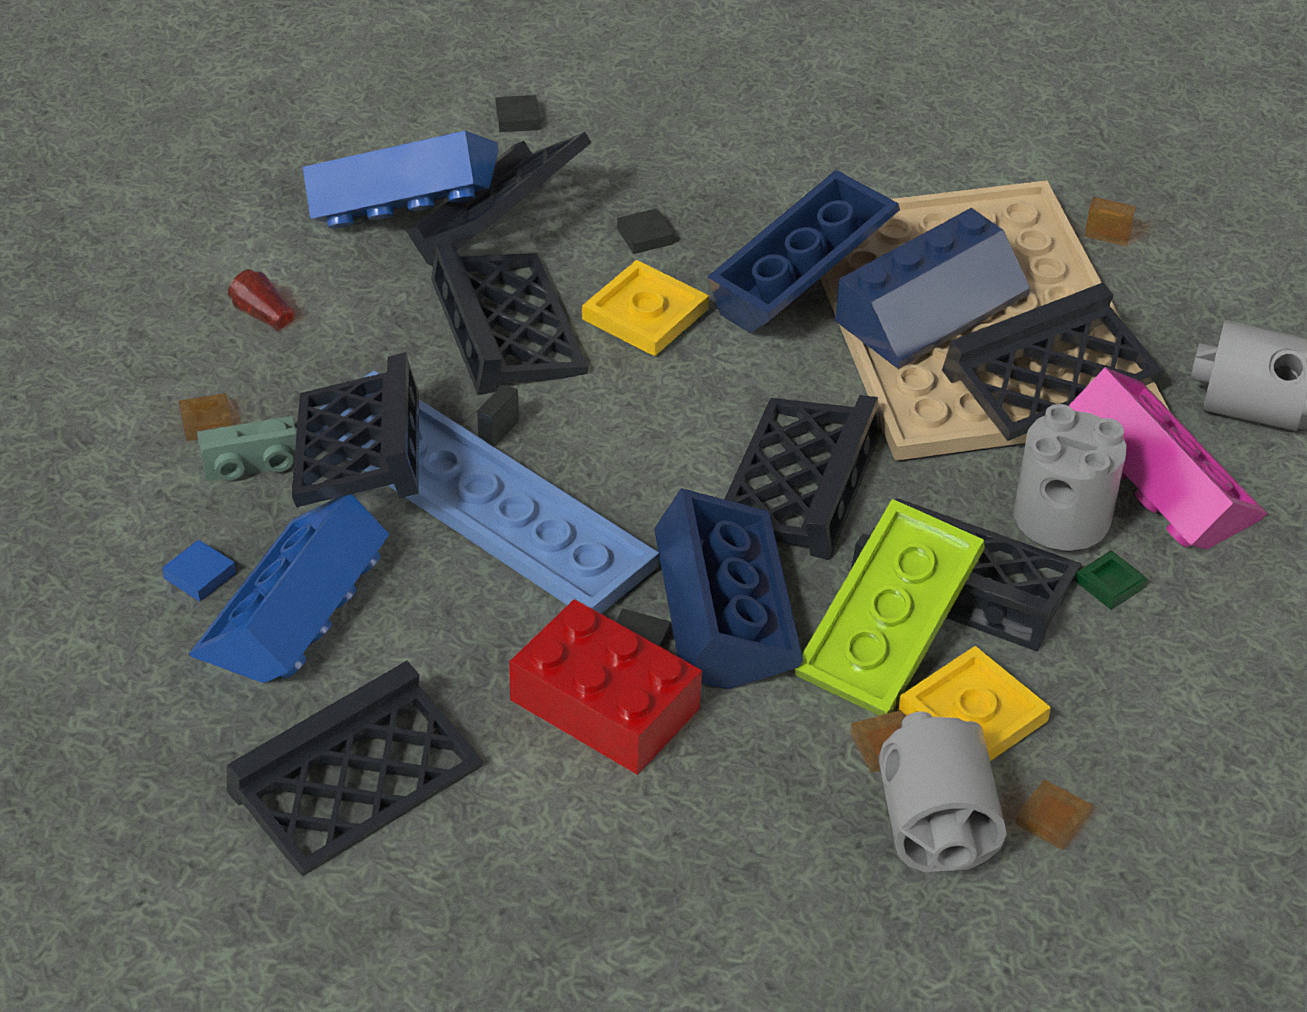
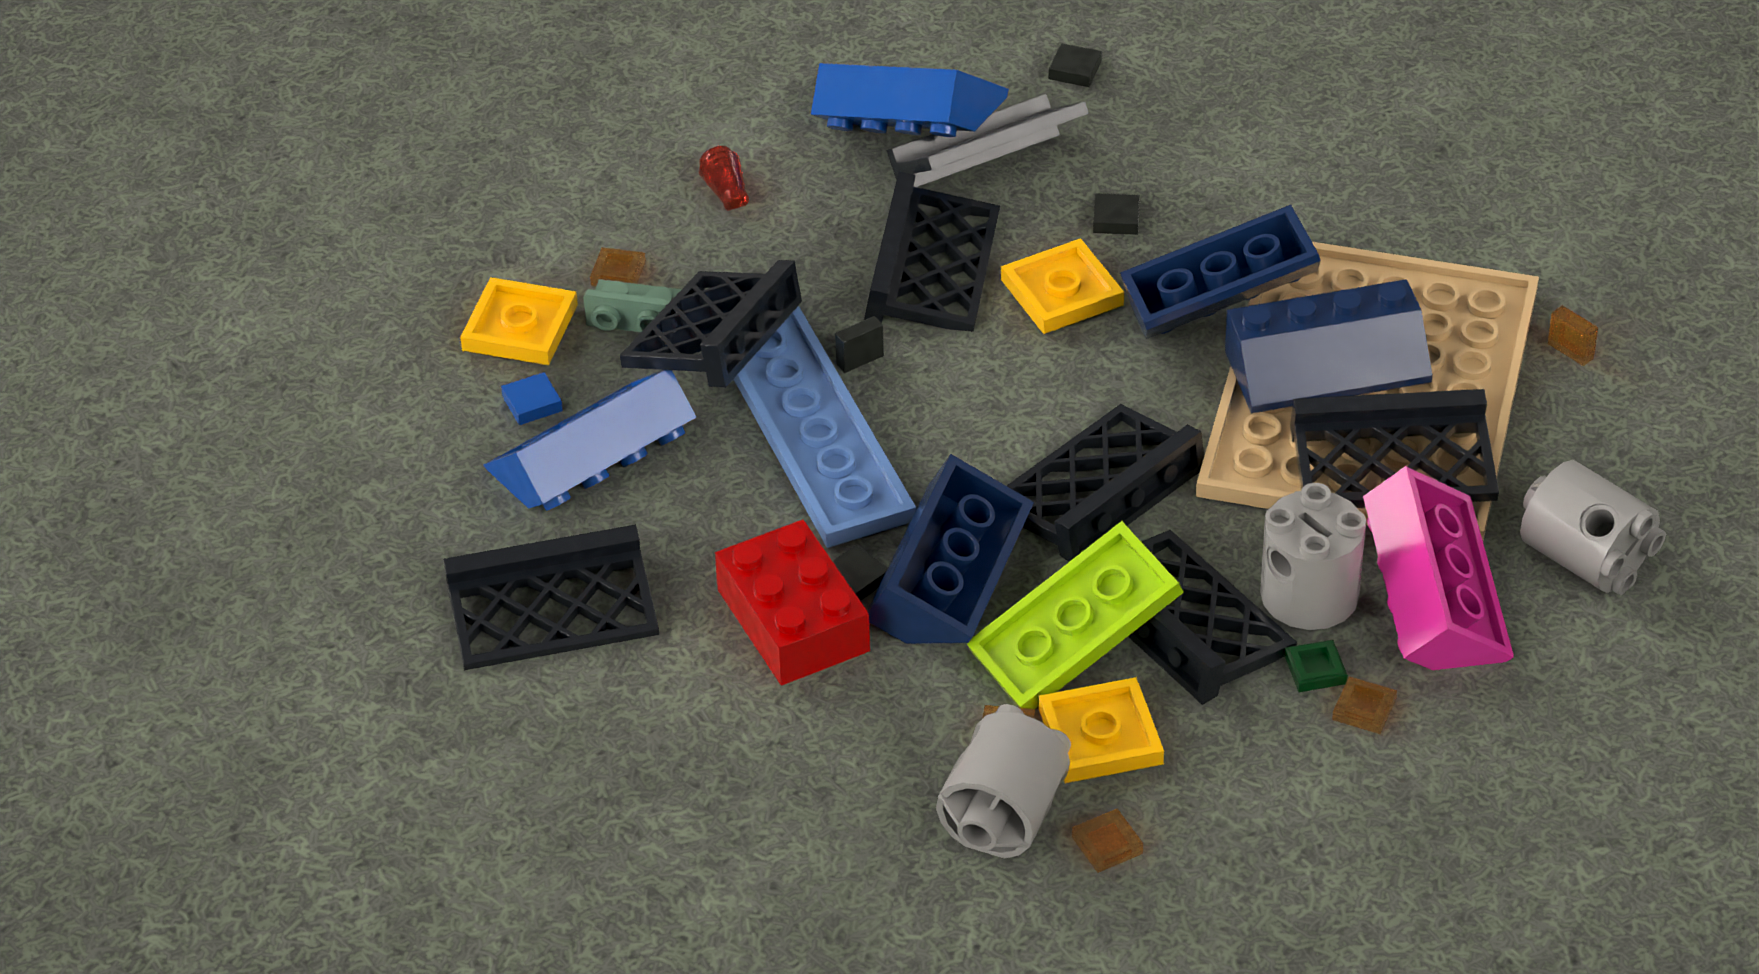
camera: 30 degrees right, 0 degrees up
(139, 497) = (519, 321): none -> yellow plate
(1178, 601) = (1364, 705): none -> clear orange tile

